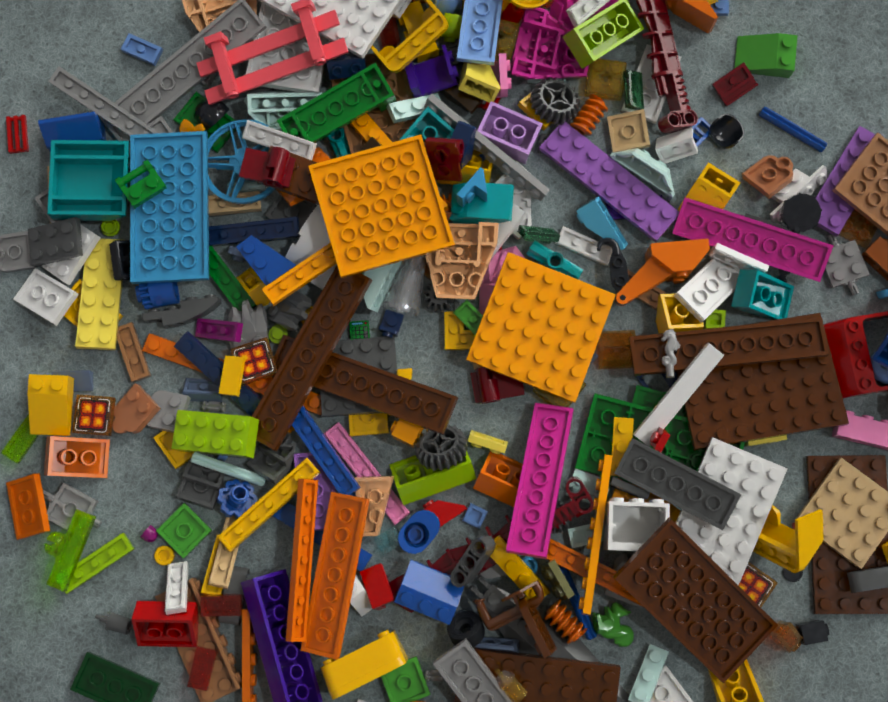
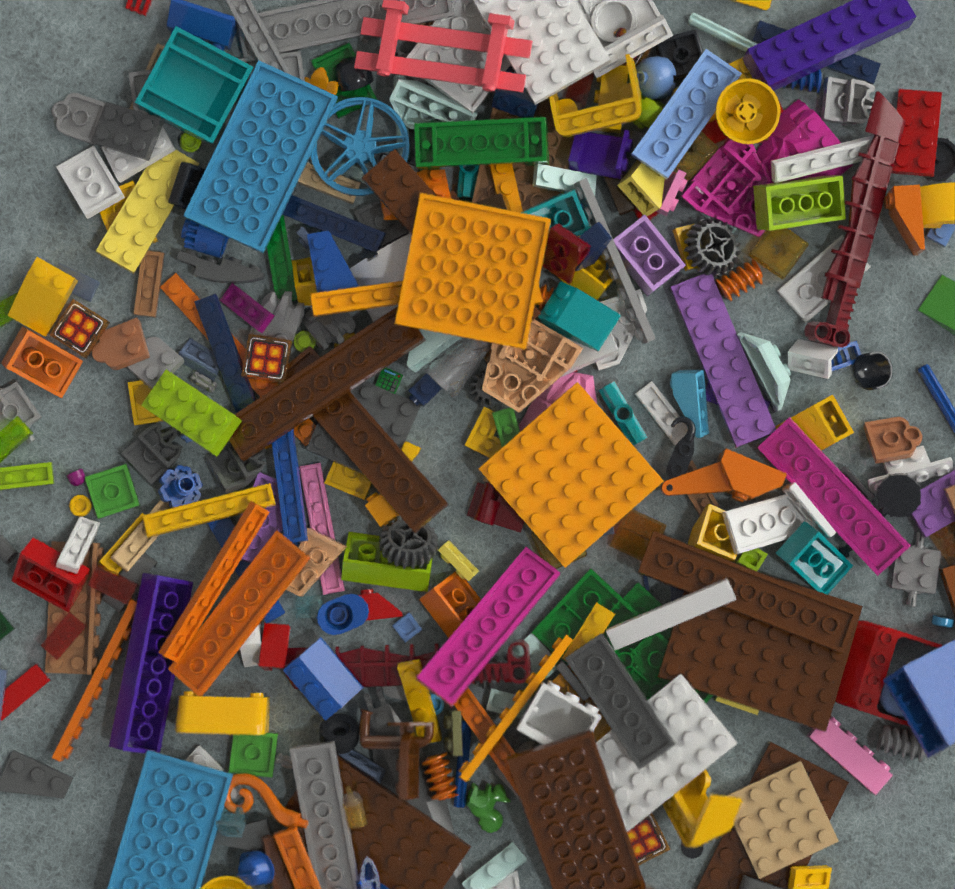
camera: 20 degrees right, 5 degrees up
(143, 189) = (245, 126): green plate -> none
(227, 469) = (186, 453): light aqua axle -> none
(232, 376) = (237, 363): yellow tile -> none
(258, 167) = (373, 167): dark red piece -> none
(271, 137) = (406, 145): white tile -> none
(465, 564) = (371, 674): dark grey beam -> none
(473, 187) = (579, 297): dark azure slope -> none
(533, 233) = (625, 379): clear green plate -> none
(628, 131) = (771, 318): tan plate -> none
(633, 90) = (799, 277): clear green plate -> none
(659, 439) = (627, 648): red plate -> none
(671, 345) = (690, 562): light grey animal -> none
(734, 84) = (909, 325): dark red plate -> none

